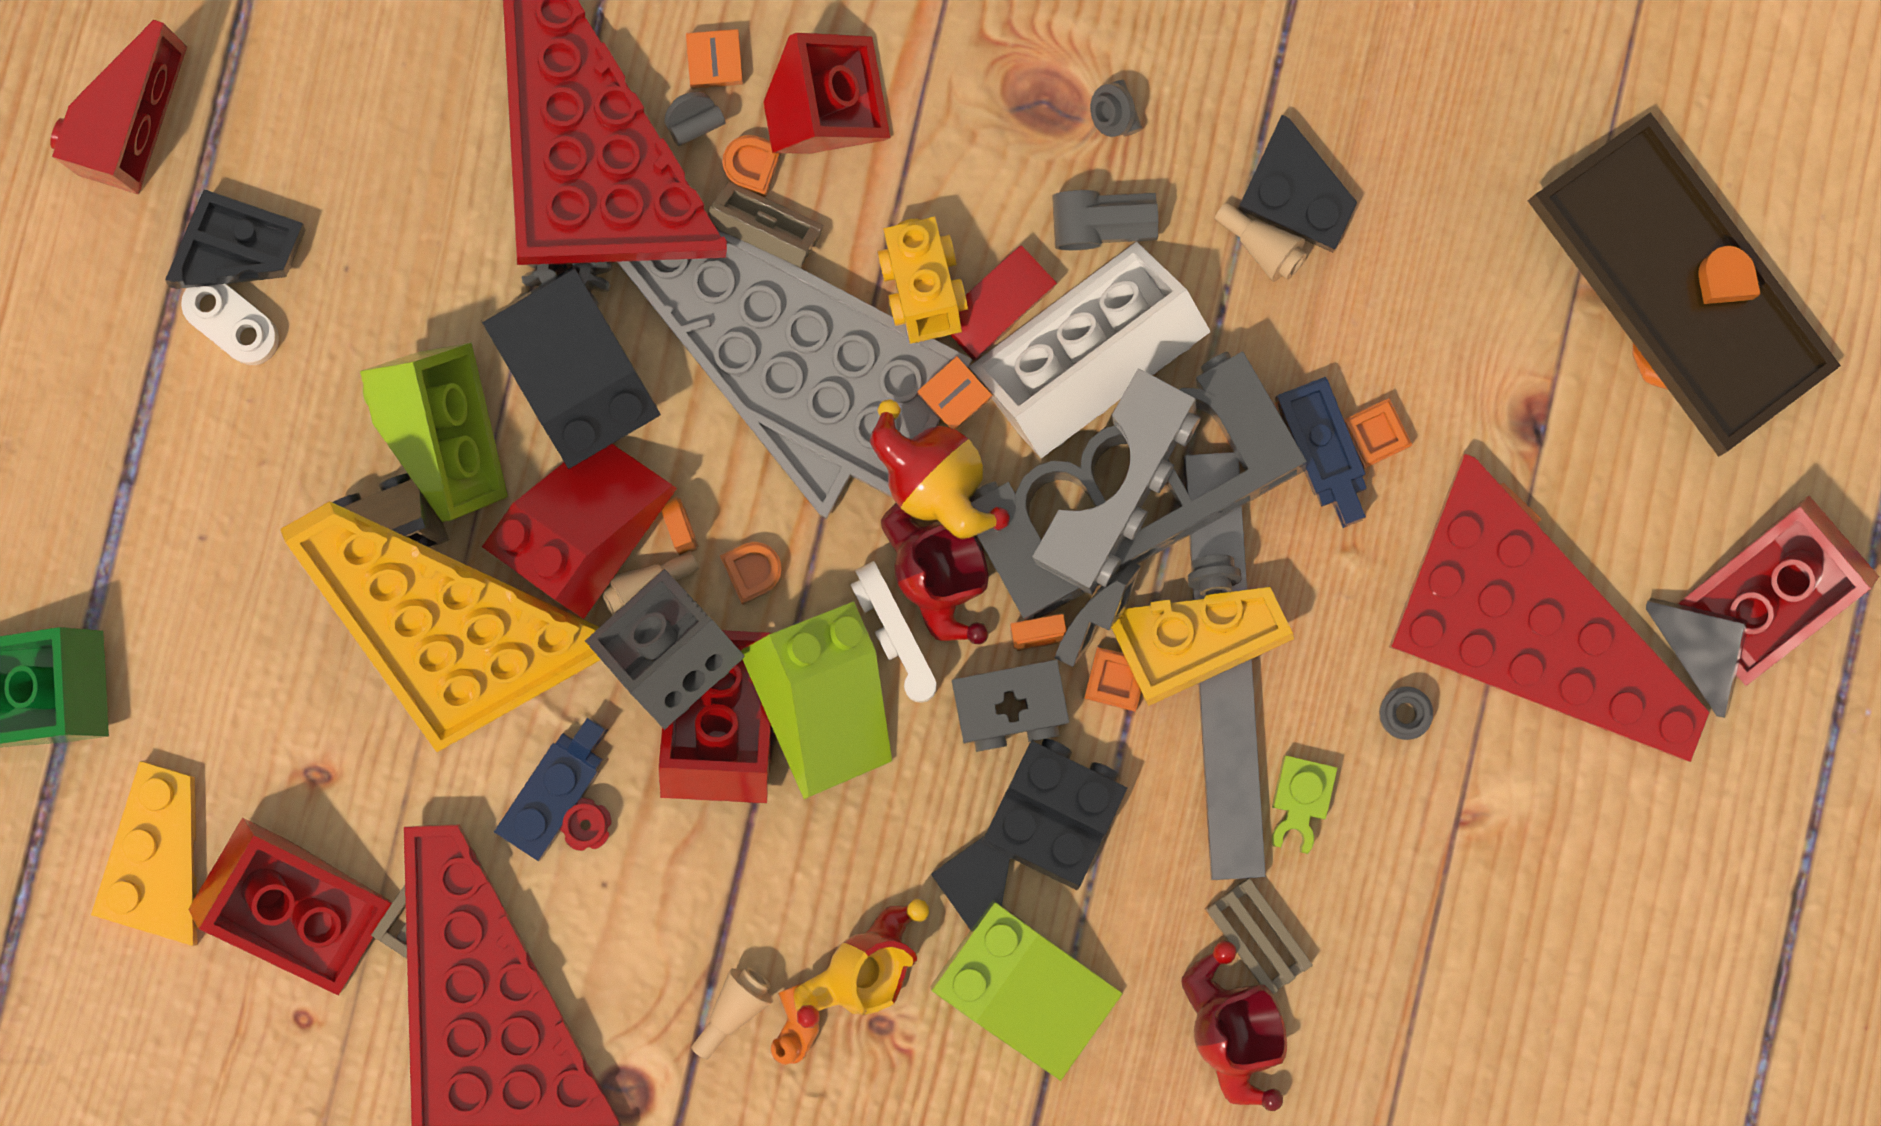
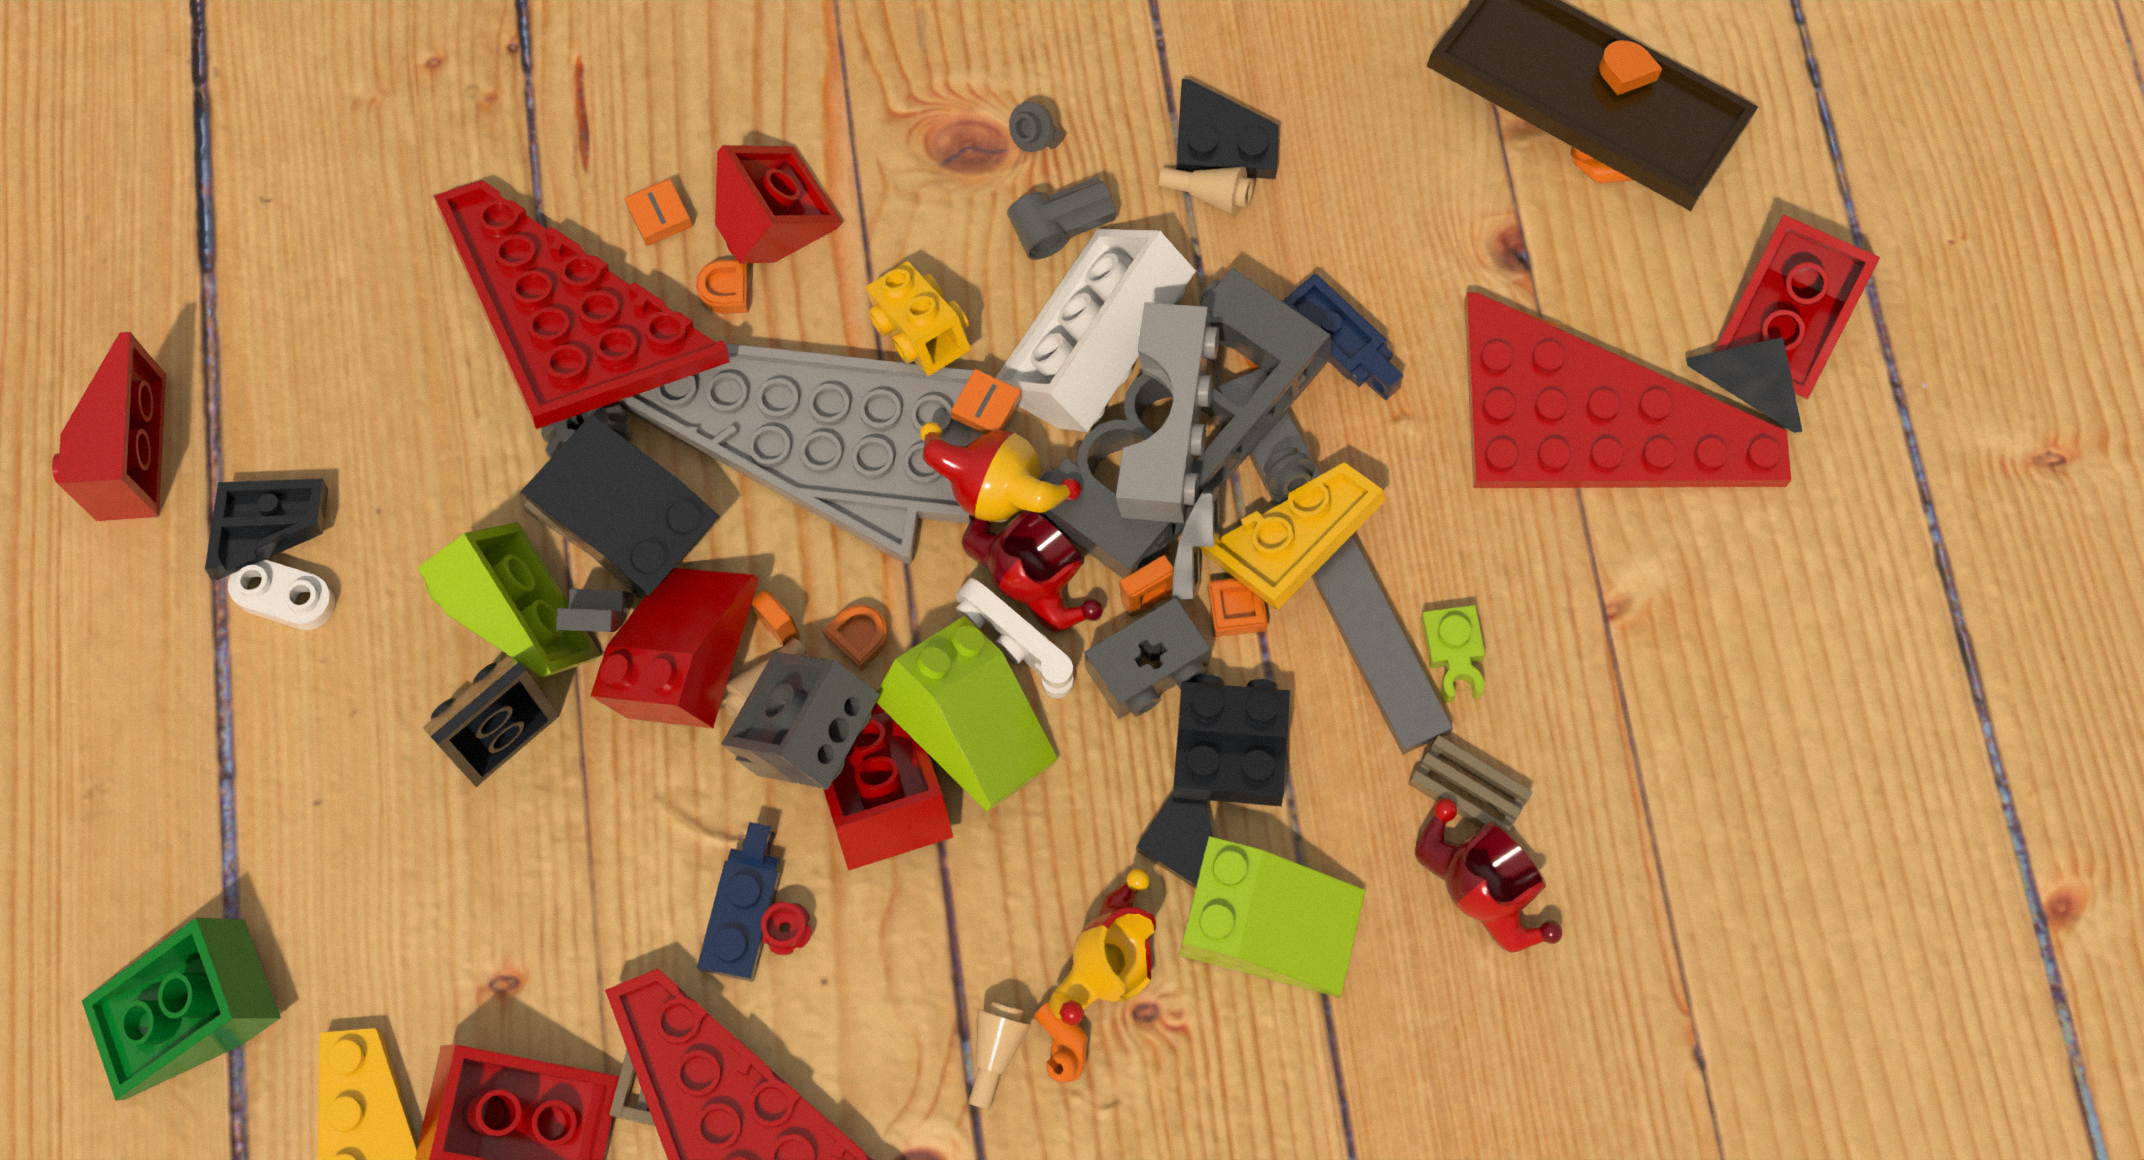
camera: 20 degrees left, 15 degrees down
(434, 628) = (576, 777): yellow wing -> none
(513, 462) = (594, 610): none -> dark grey slope
(692, 117) = (655, 262): dark grey plate -> none
(764, 224) = (756, 327): dark tan tile -> none
(1001, 301) = (996, 316): red slope -> none
(1377, 433) = (1384, 306): orange tile -> none
(1421, 706) = (1515, 521): dark grey plate -> none

